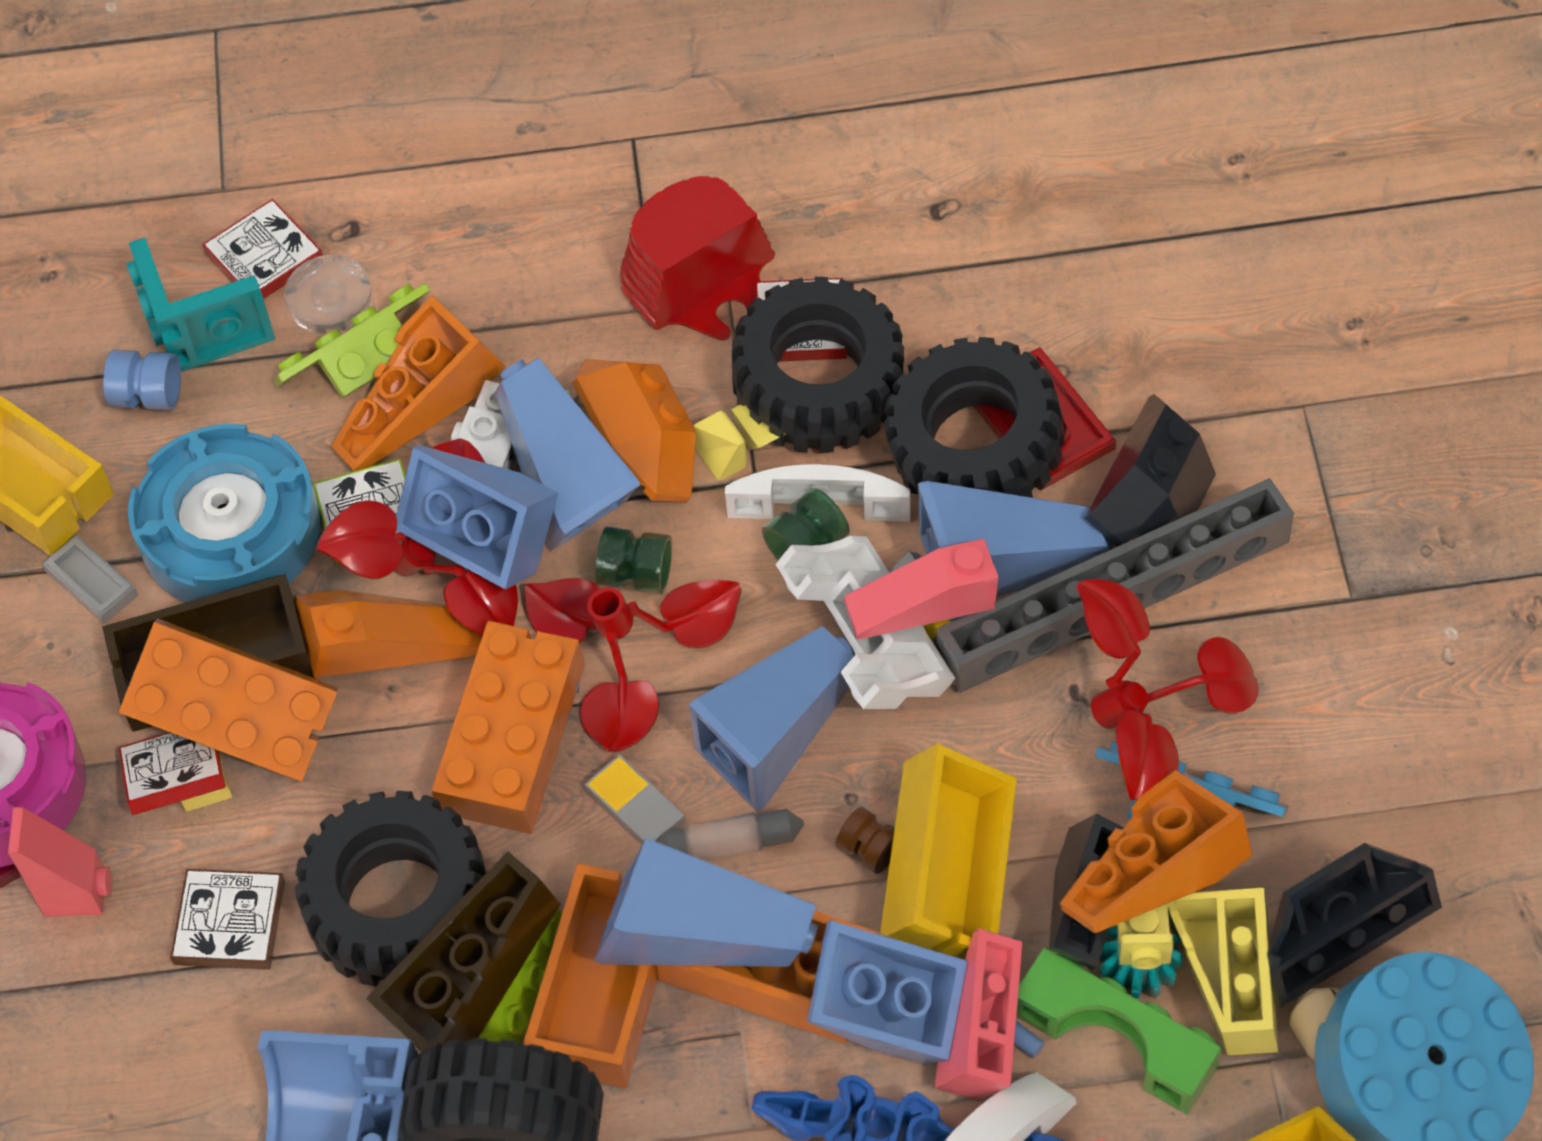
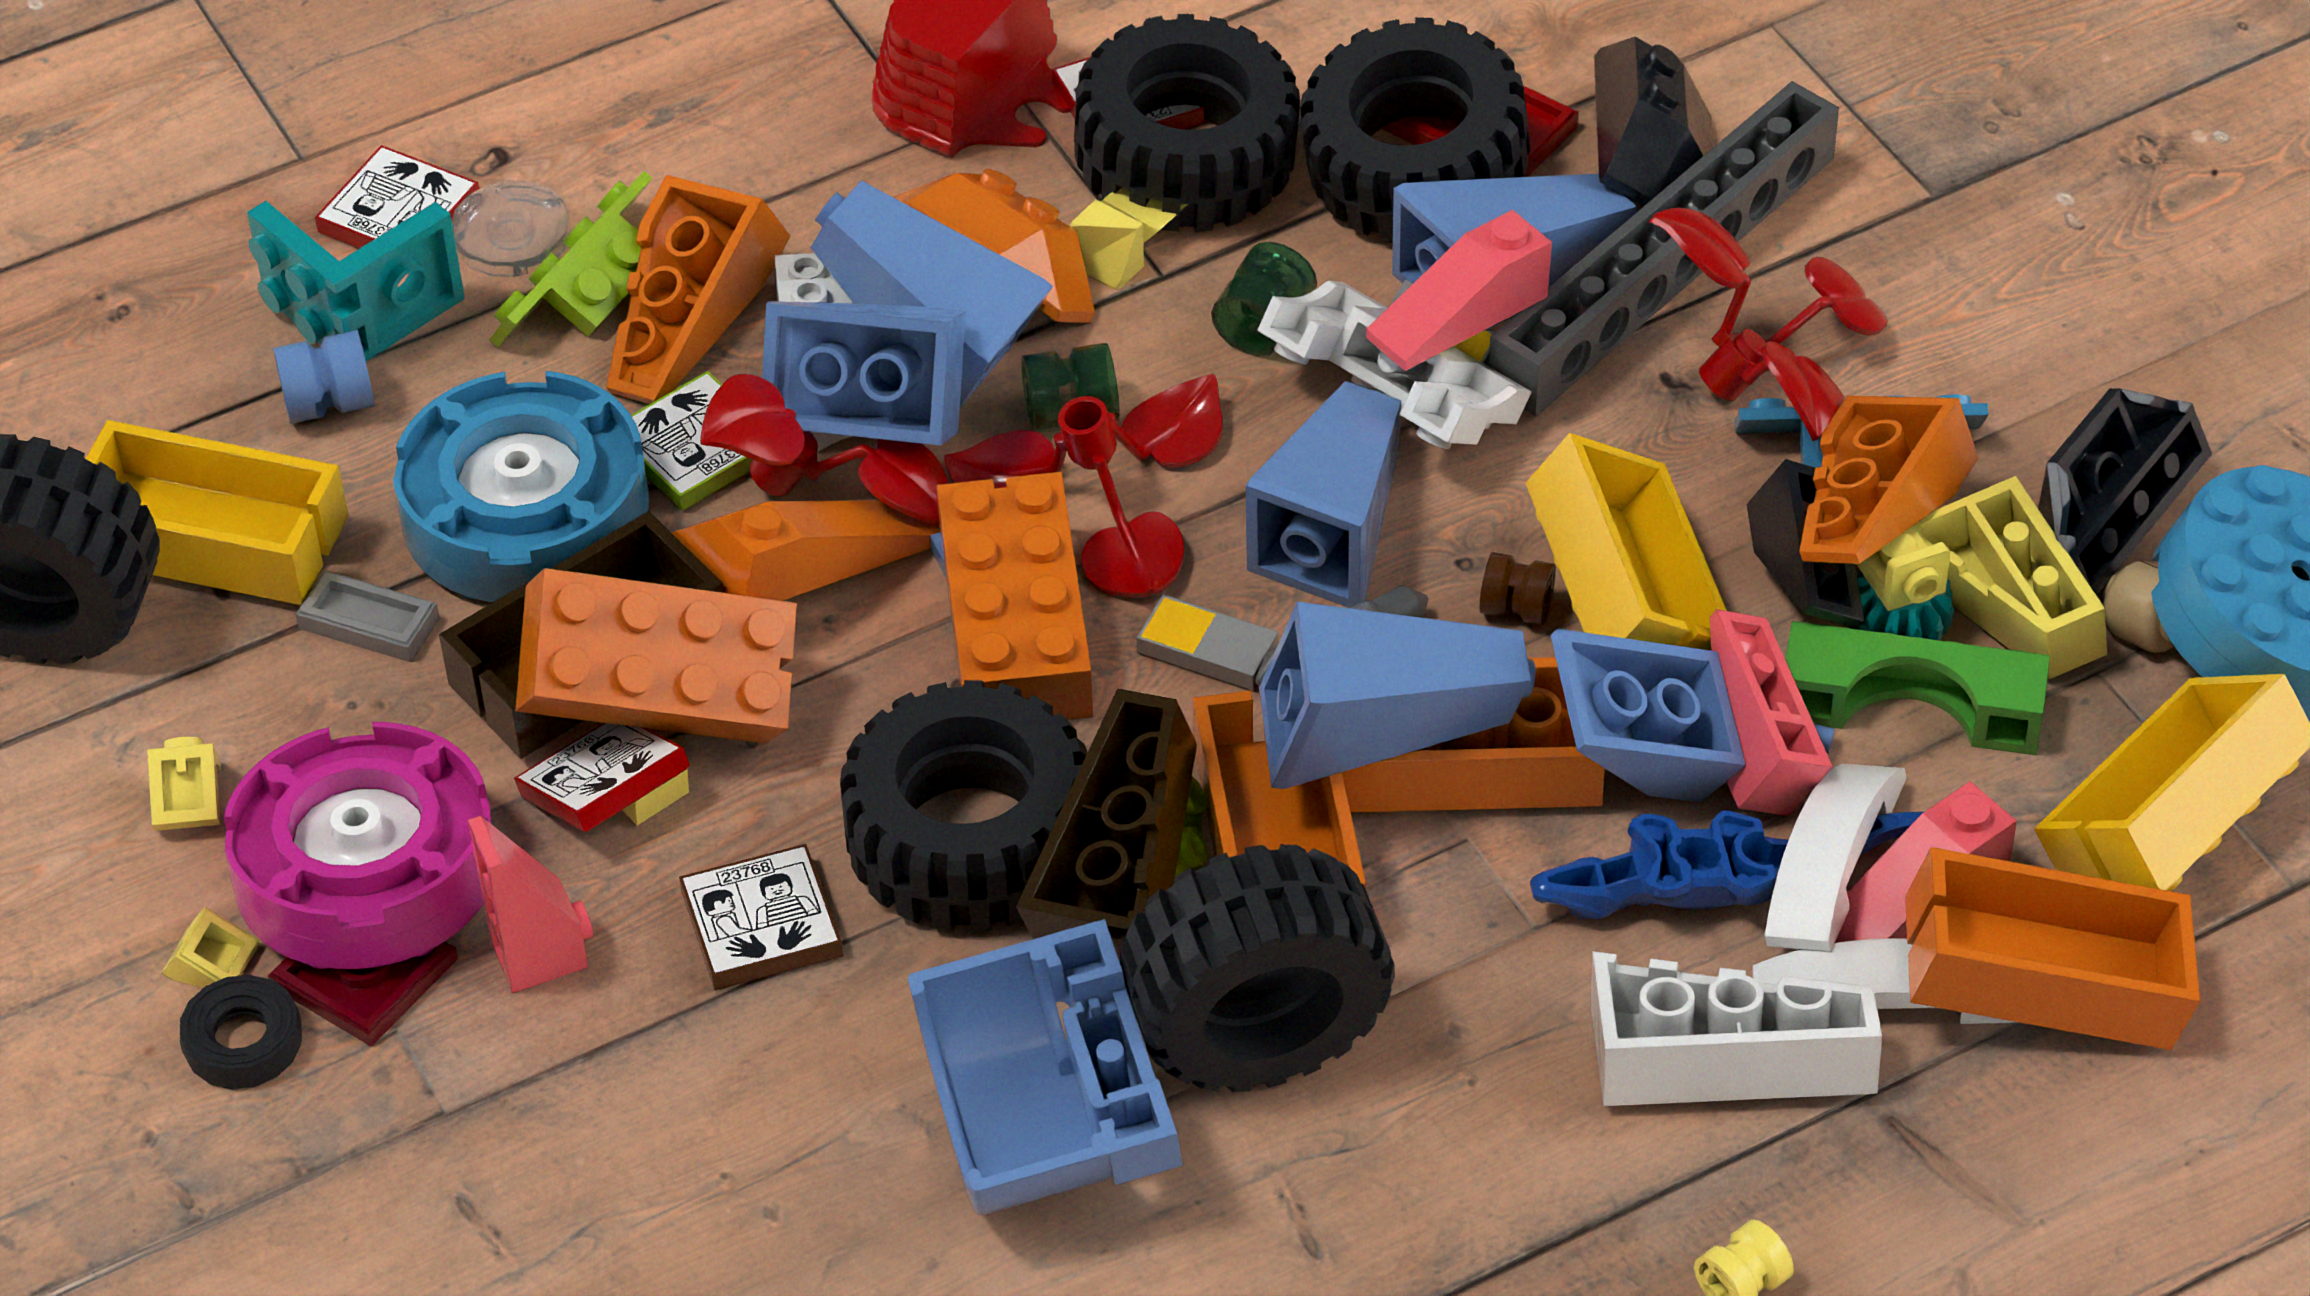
camera: 25 degrees left, 10 degrees down
(757, 493) = (1328, 240): white slope -> none

